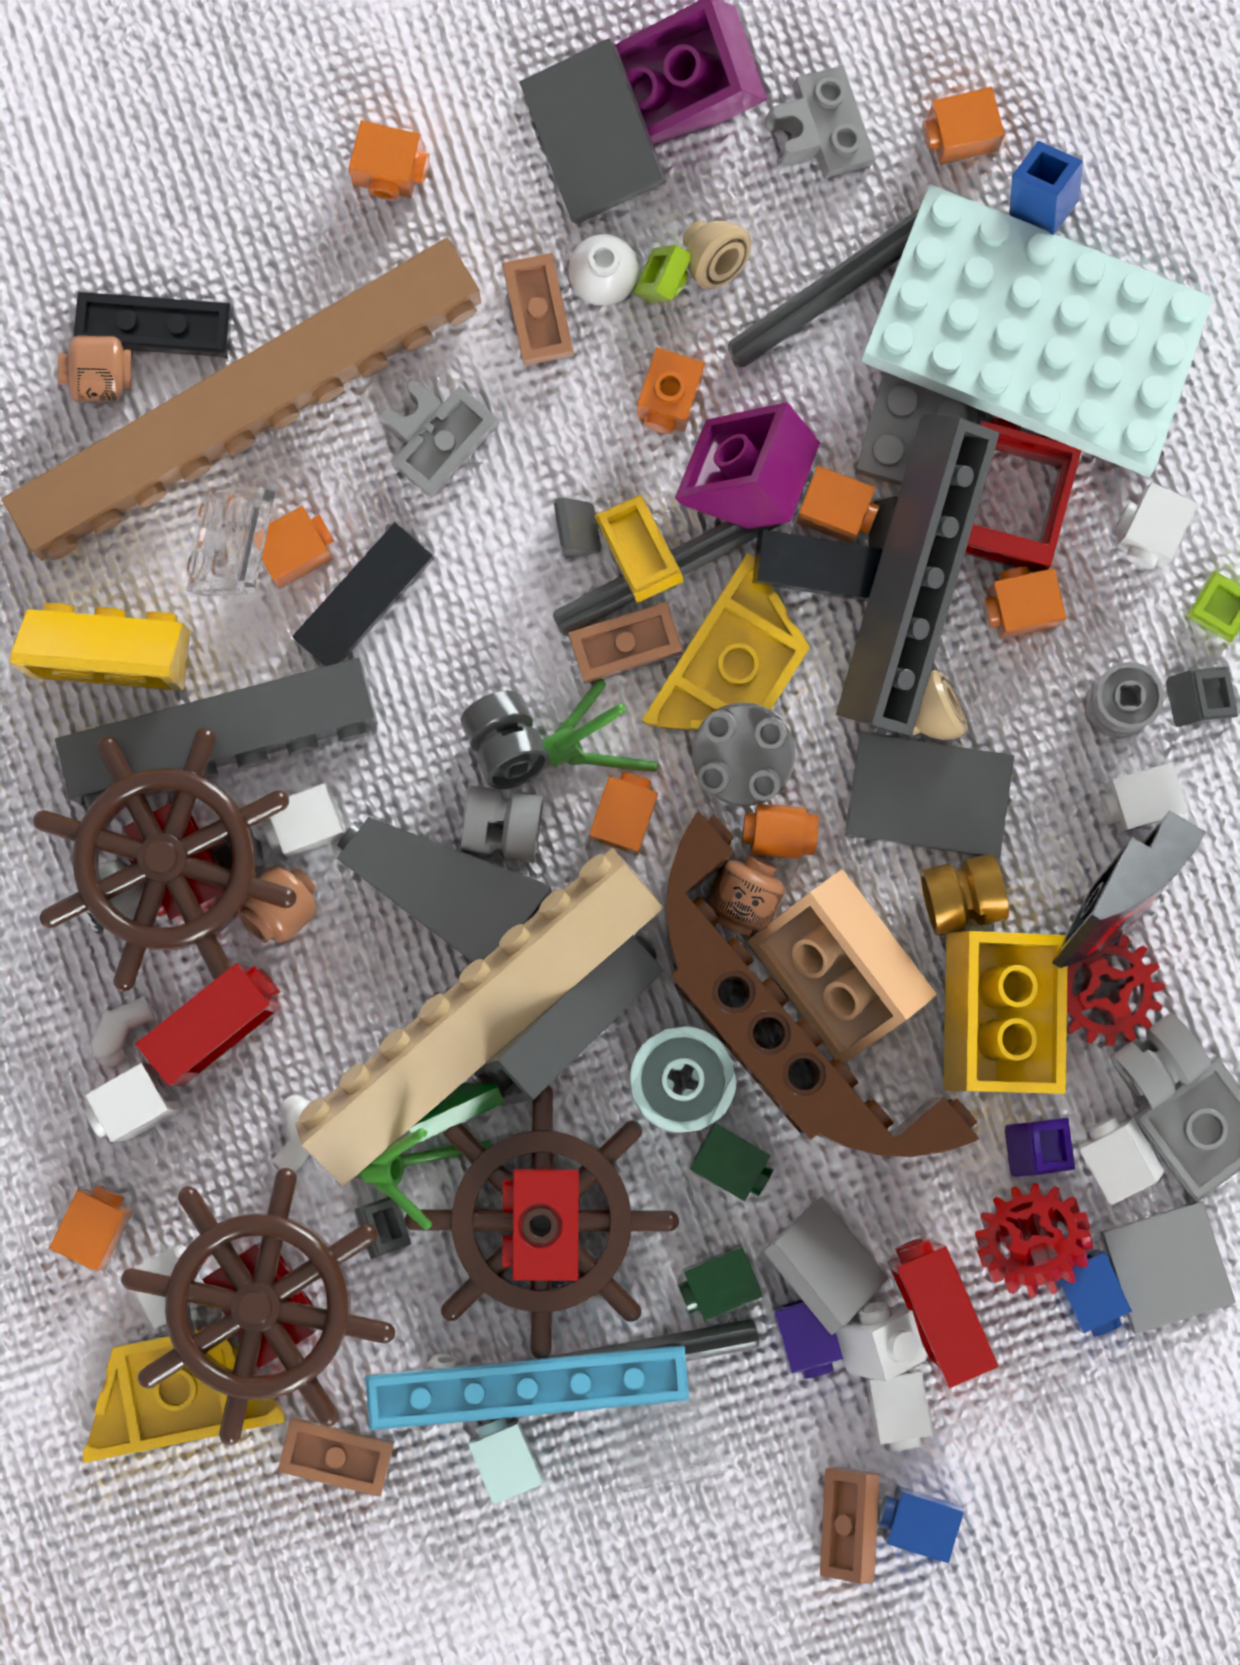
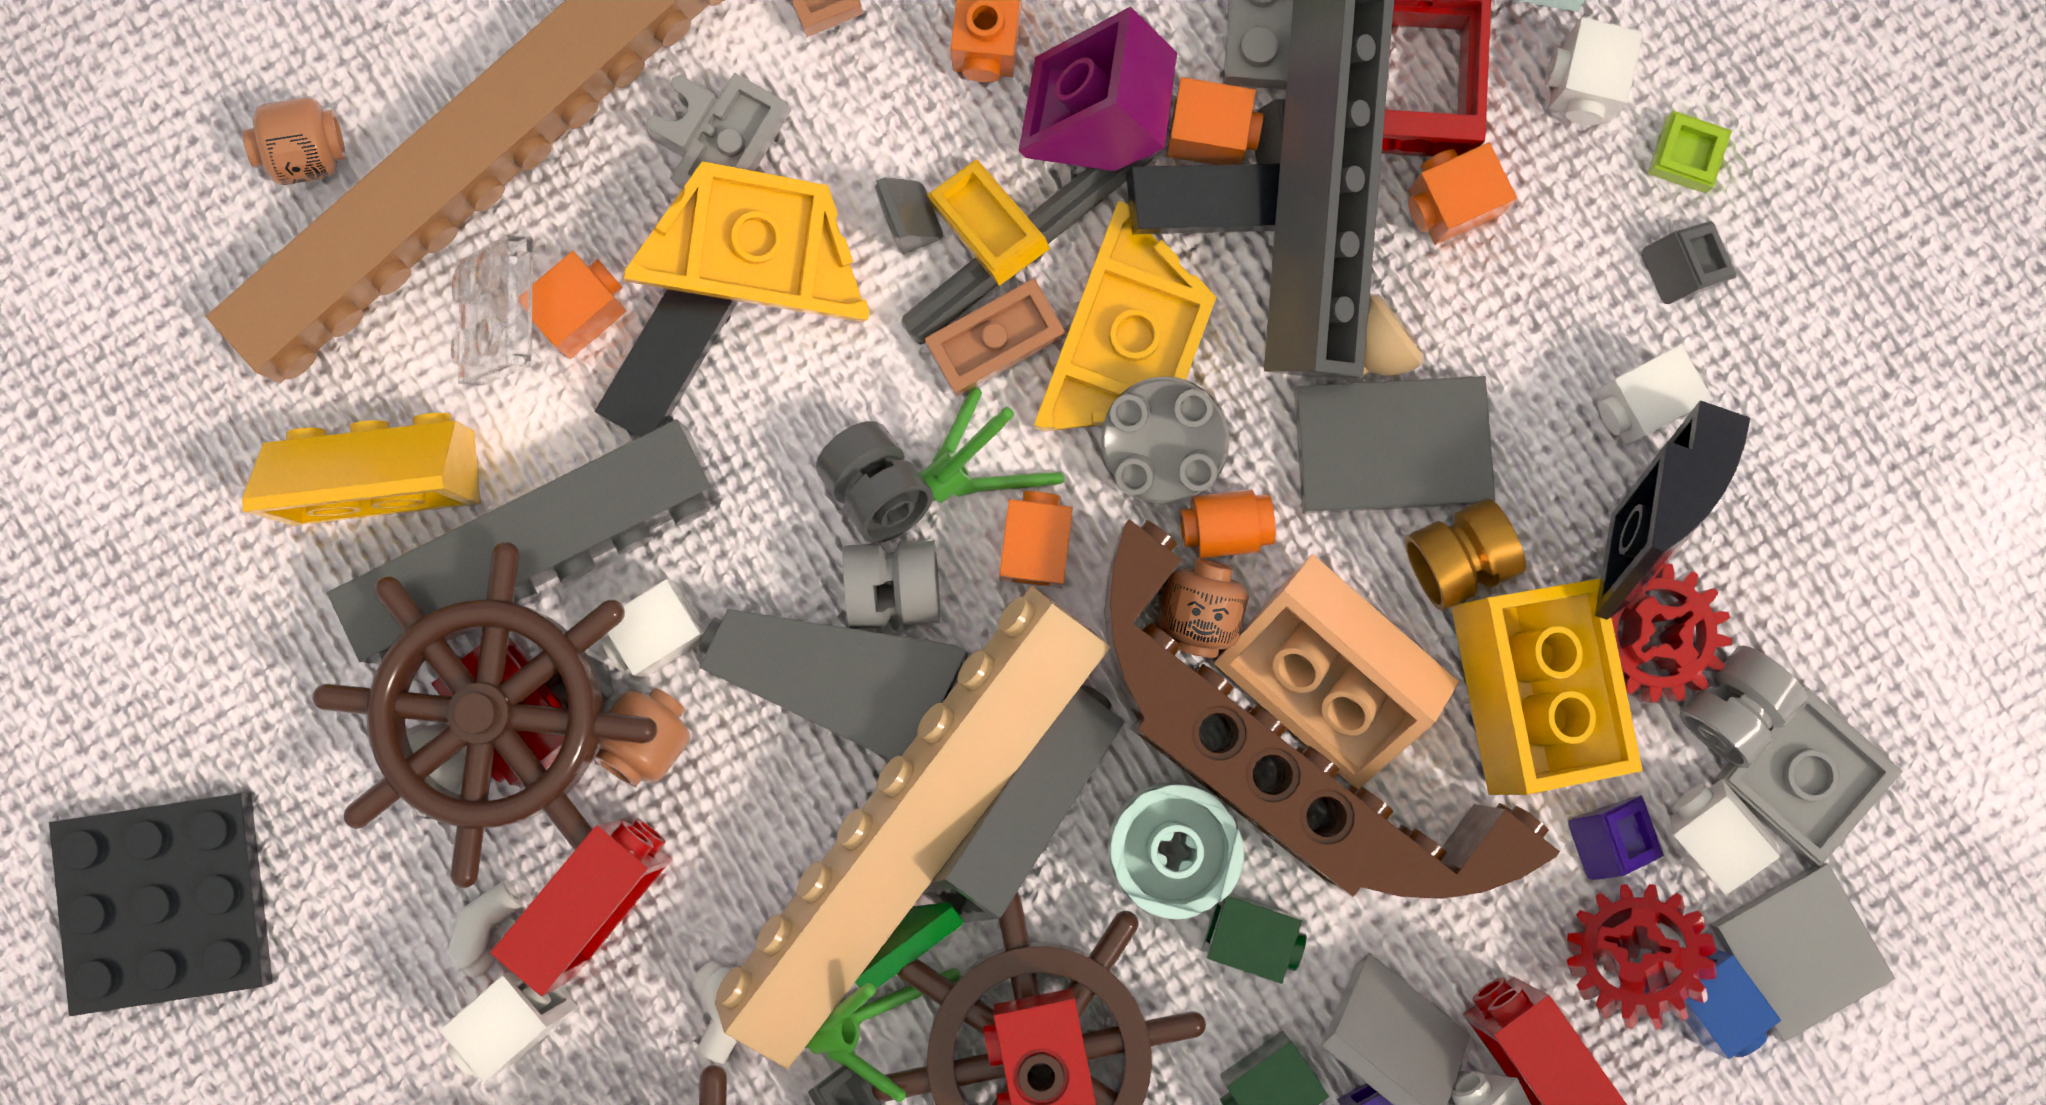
camera: 10 degrees left, 0 degrees up
(156, 323) = (362, 74): black tile -> none
(447, 528) = (752, 243): none -> yellow wing
(1124, 700) = (1605, 282): light grey wheel -> none

